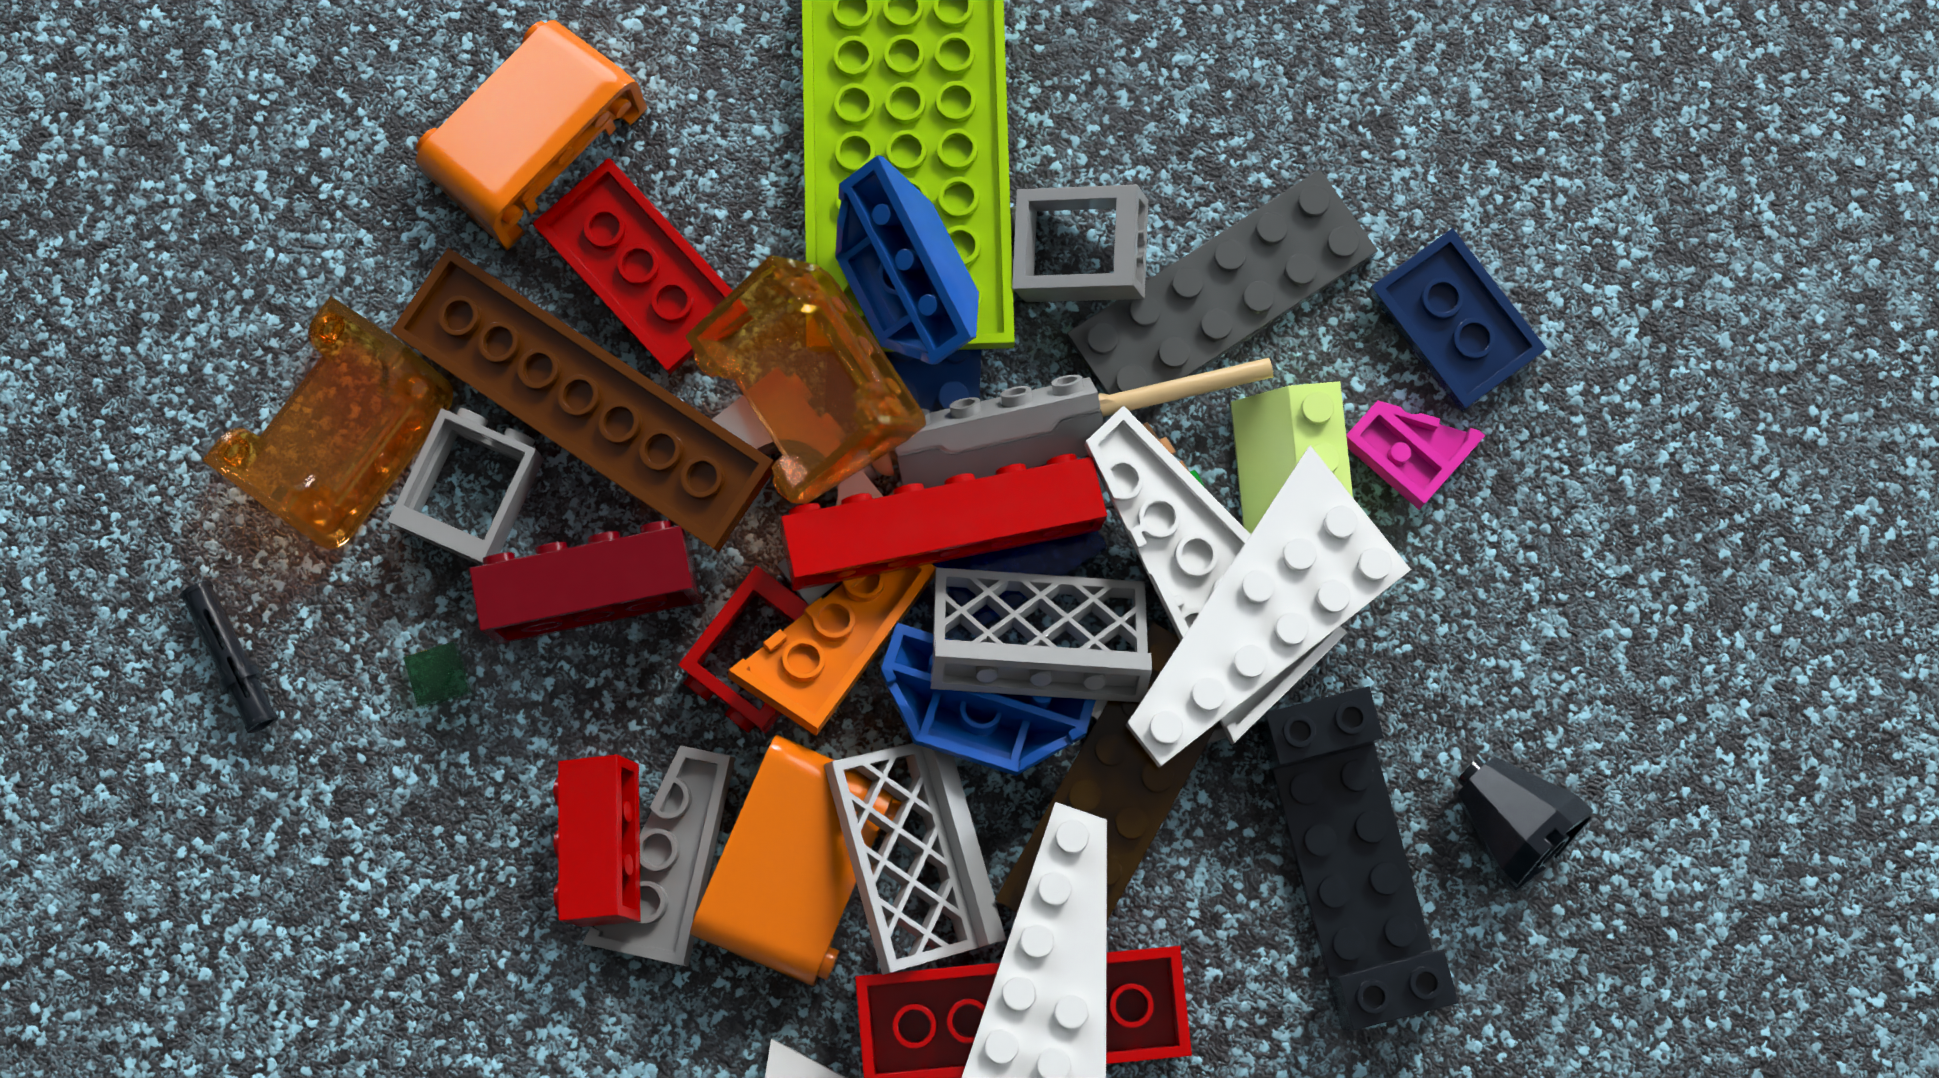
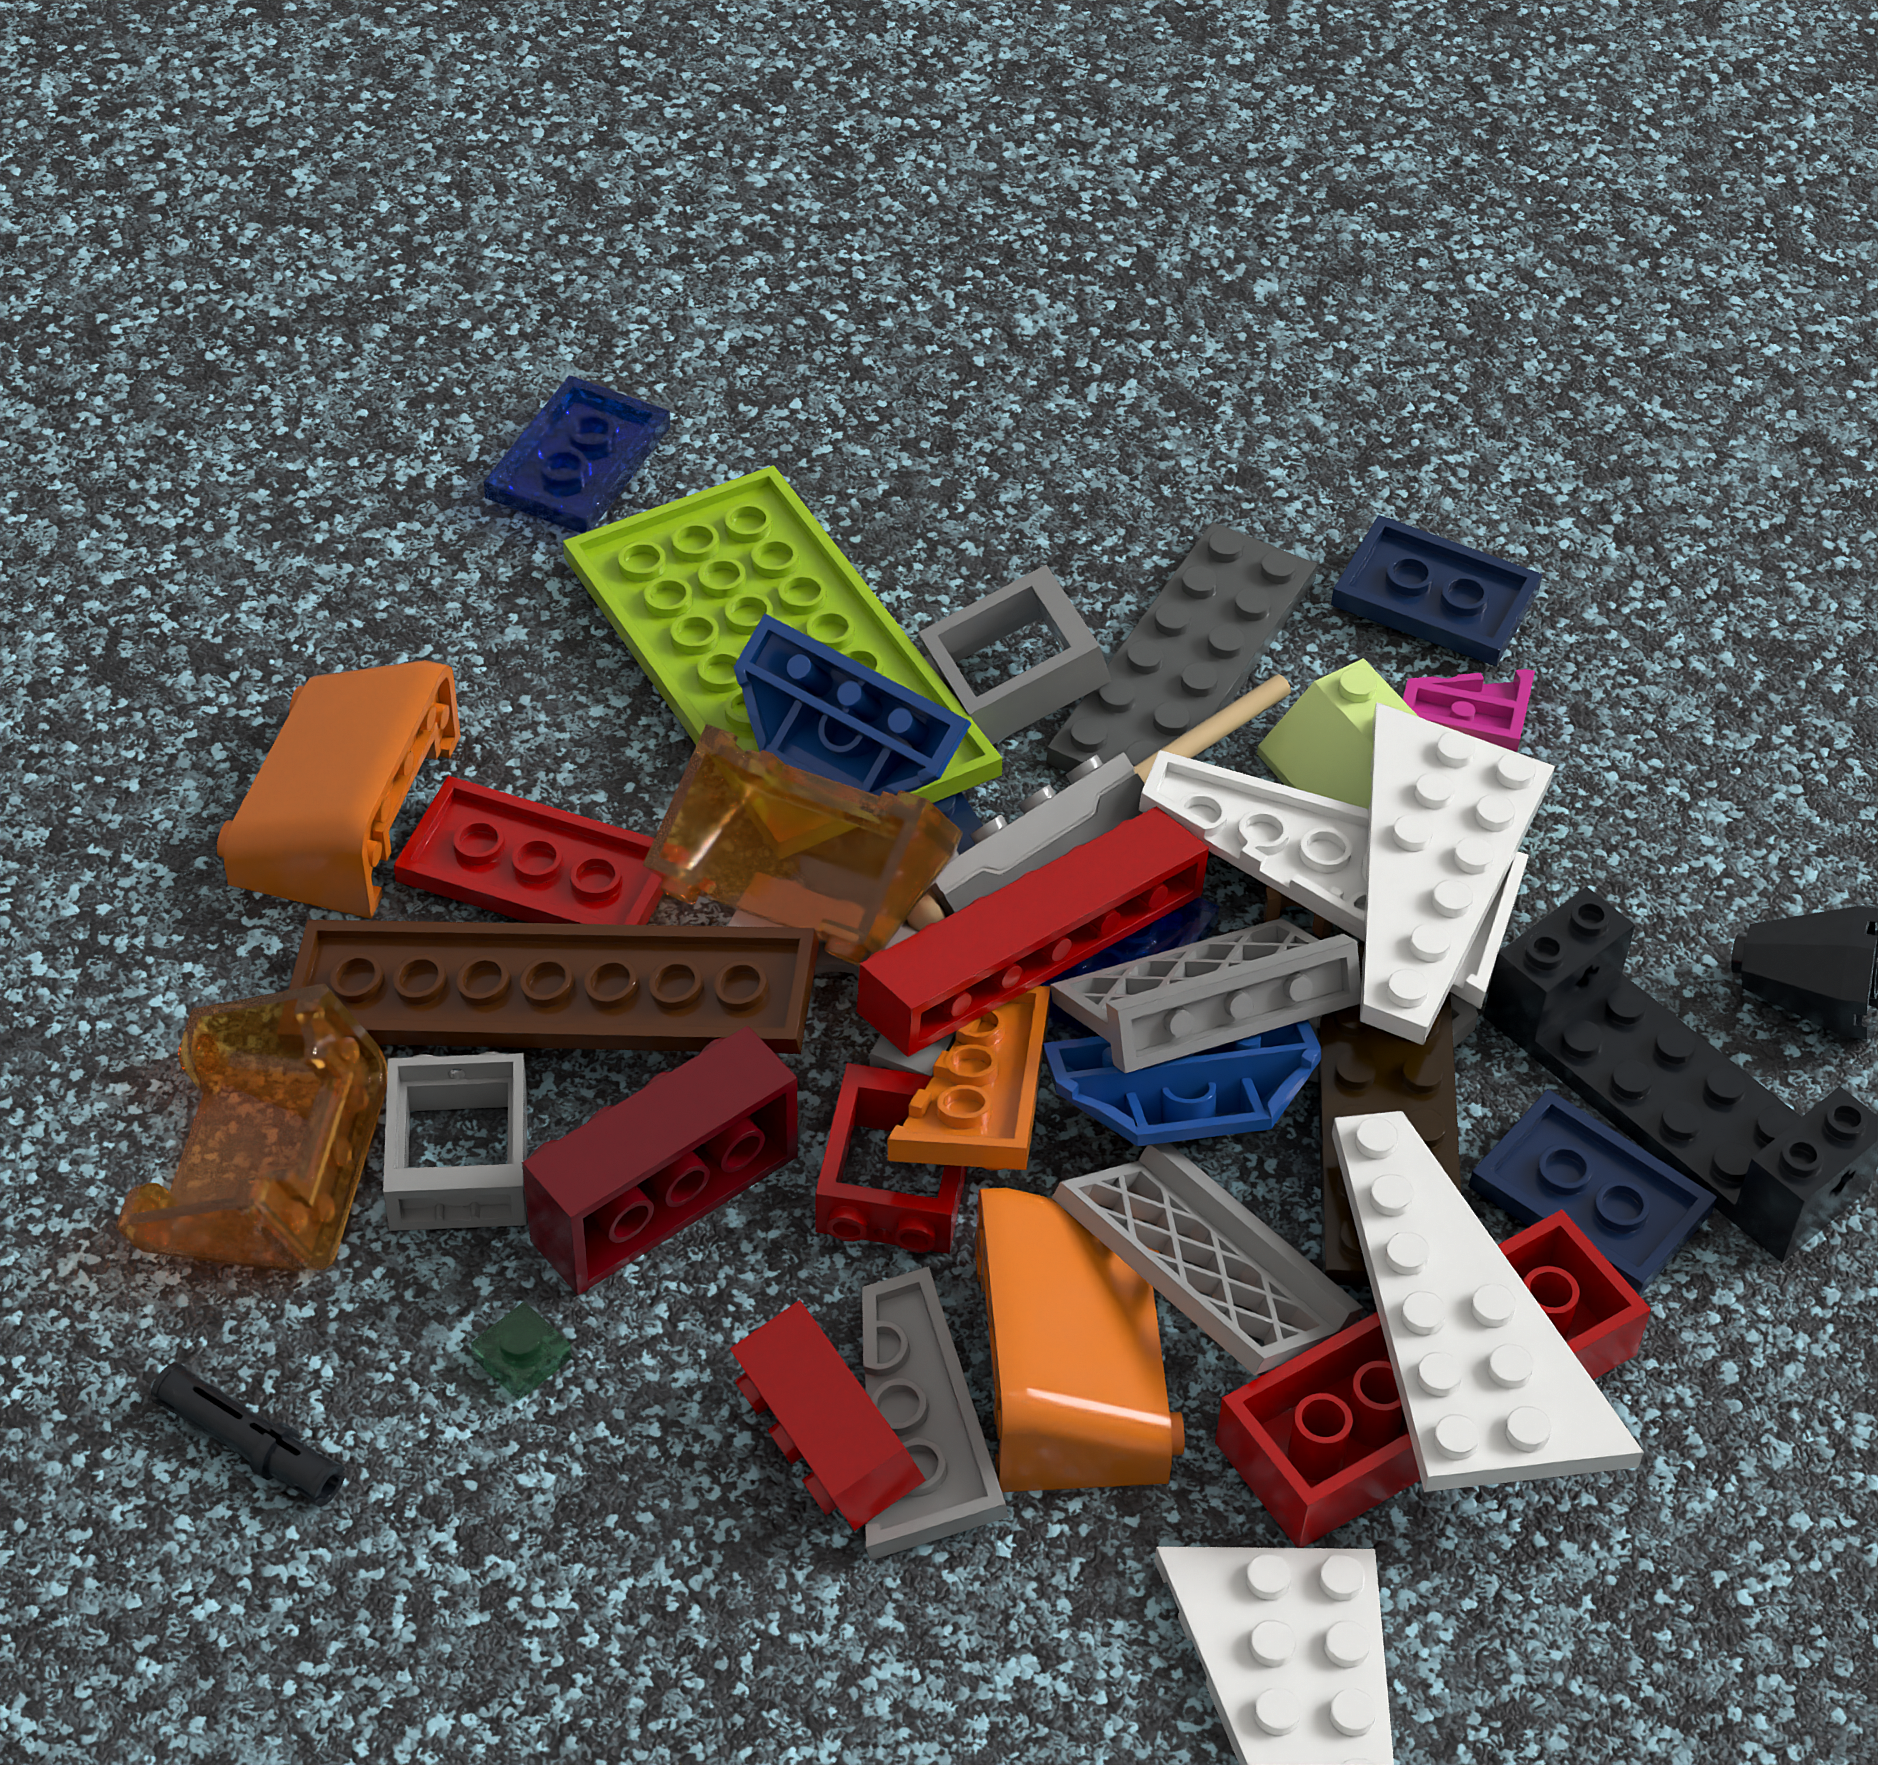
camera: 30 degrees left, 30 degrees down
(1234, 916) = (1608, 1186): none -> dark blue plate

